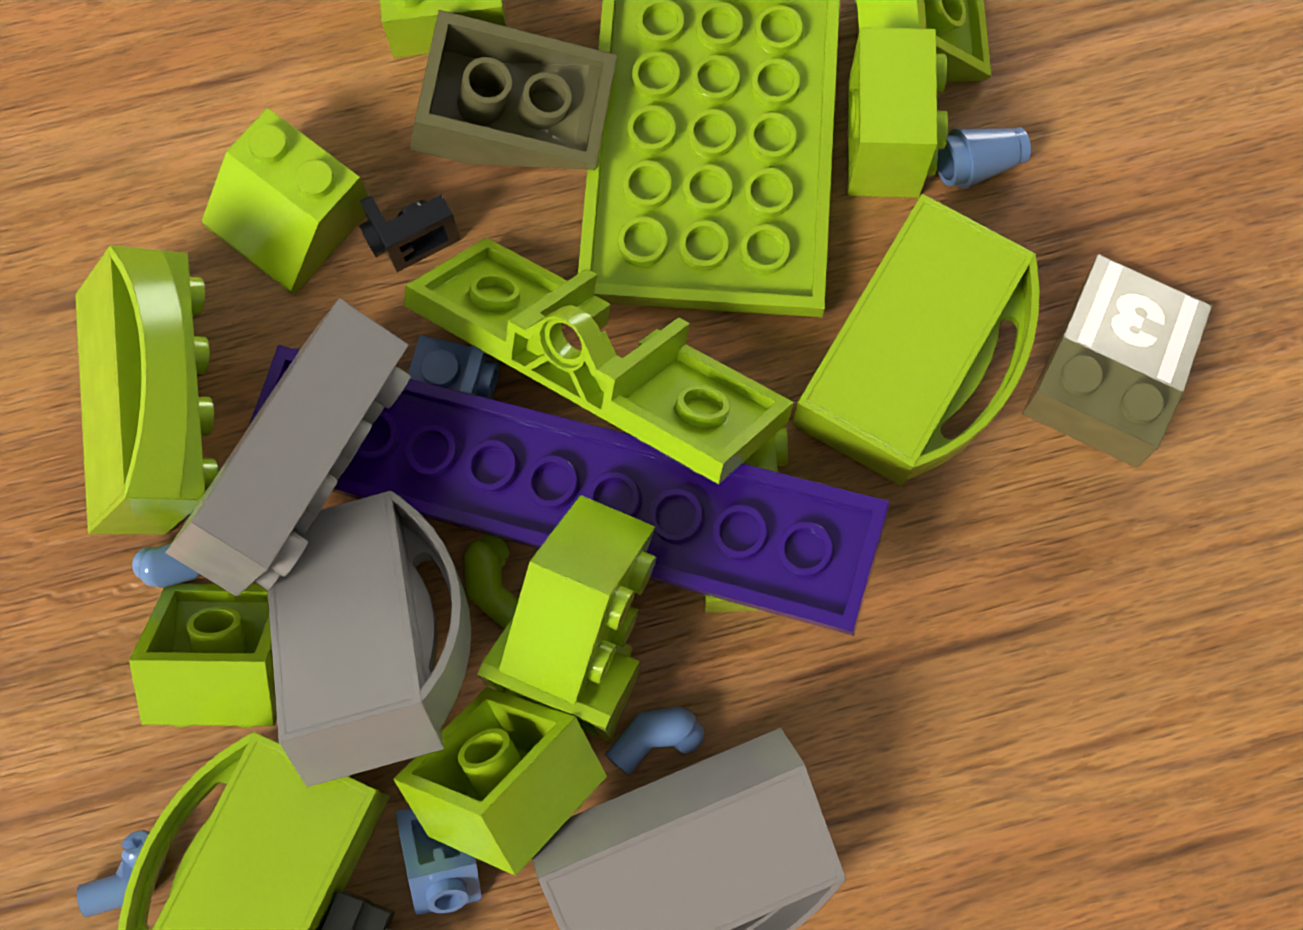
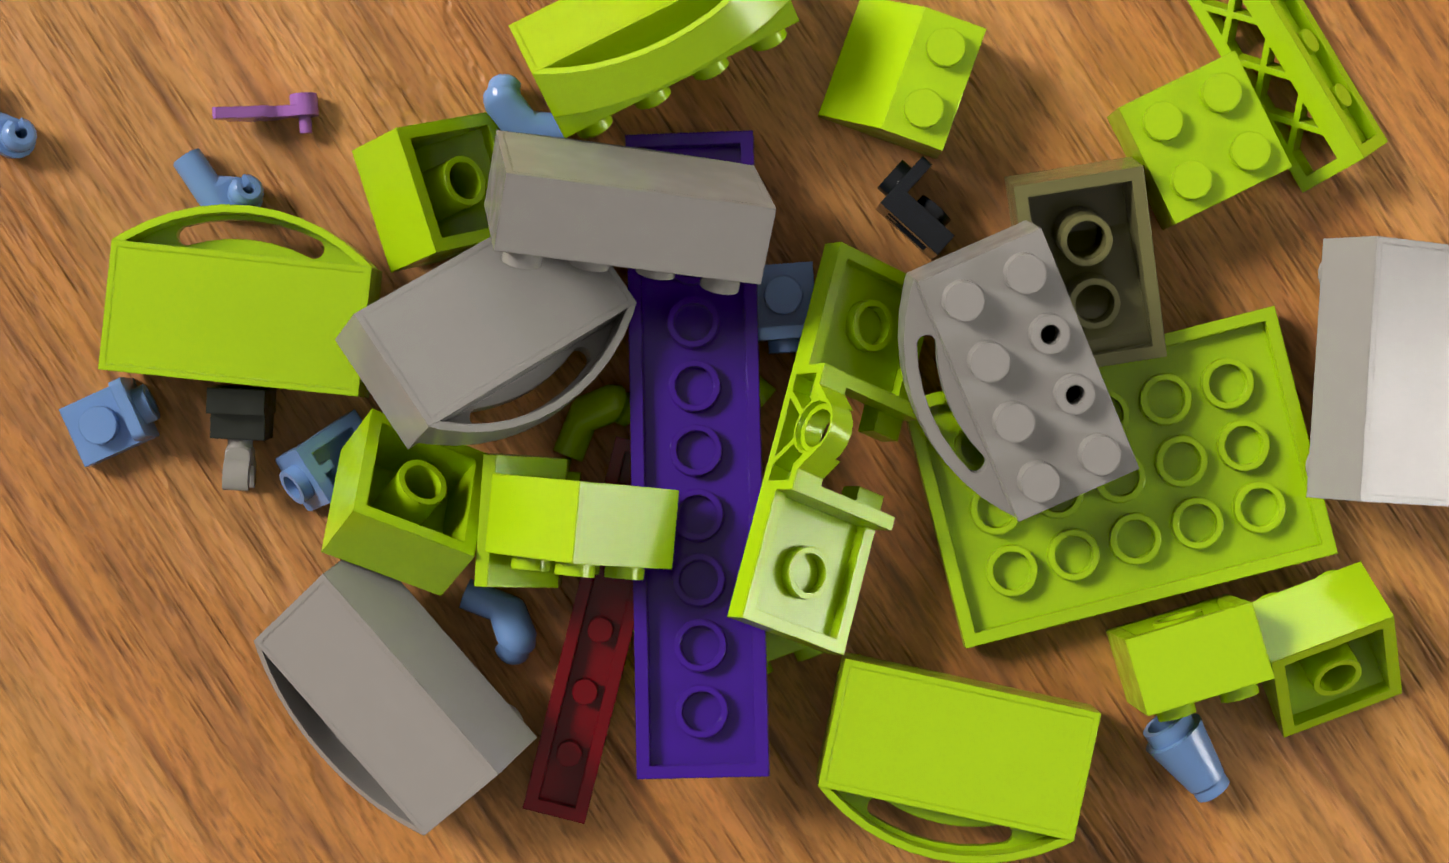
camera: 65 degrees right, 15 degrees up
(83, 766) = (302, 106): none -> medium lavender piece
(581, 169) = (1012, 373): none -> light grey piece
(748, 674) = (584, 684): none -> dark red plate

